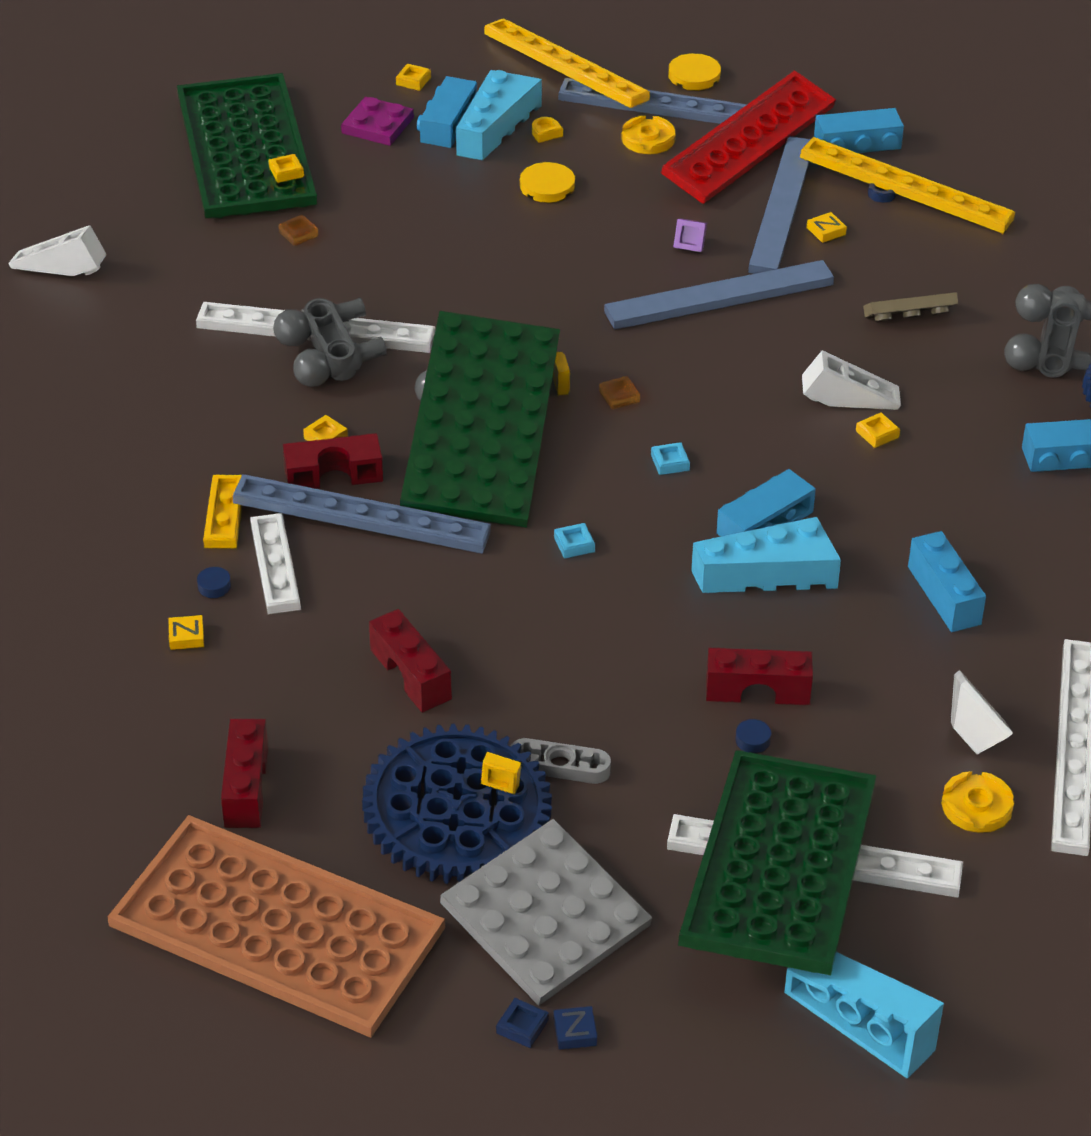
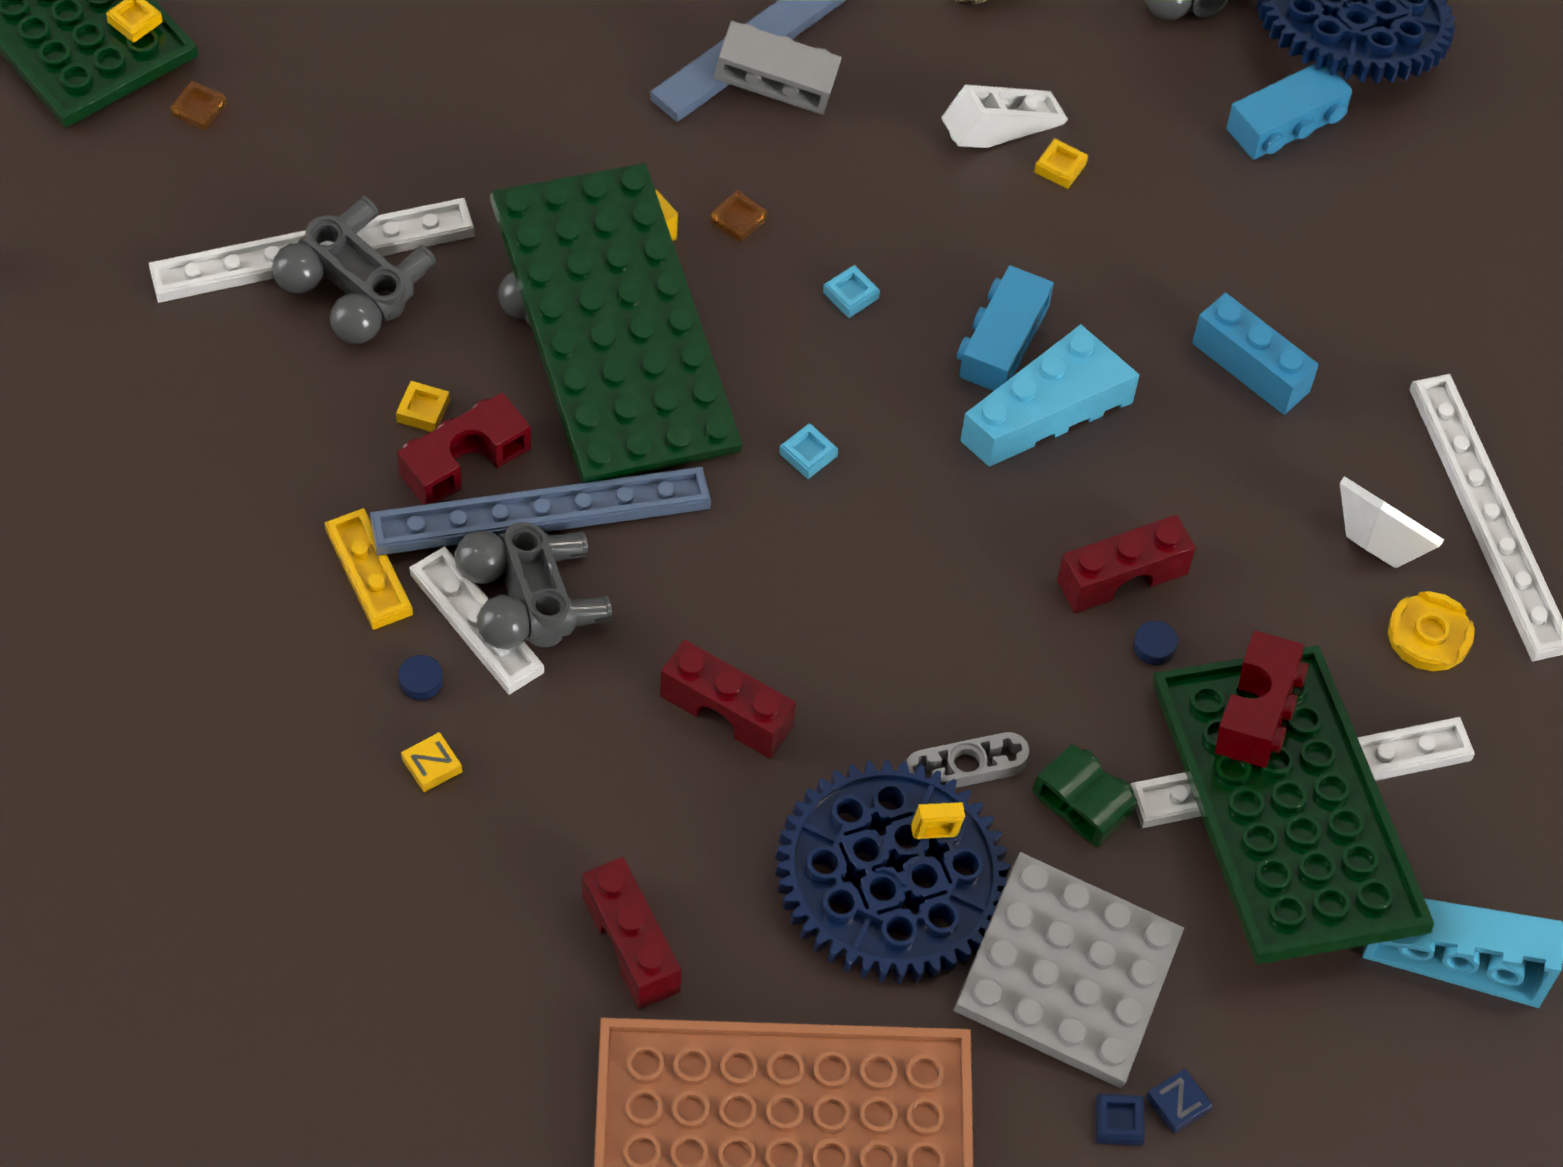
camera: 30 degrees left, 15 degrees up
(325, 537) = (537, 597): none -> dark grey piece
(632, 807) = (1085, 794): none -> dark green brick
(700, 311) = (777, 67): none -> light grey brick
(781, 798) = (1253, 725): none -> dark red arch

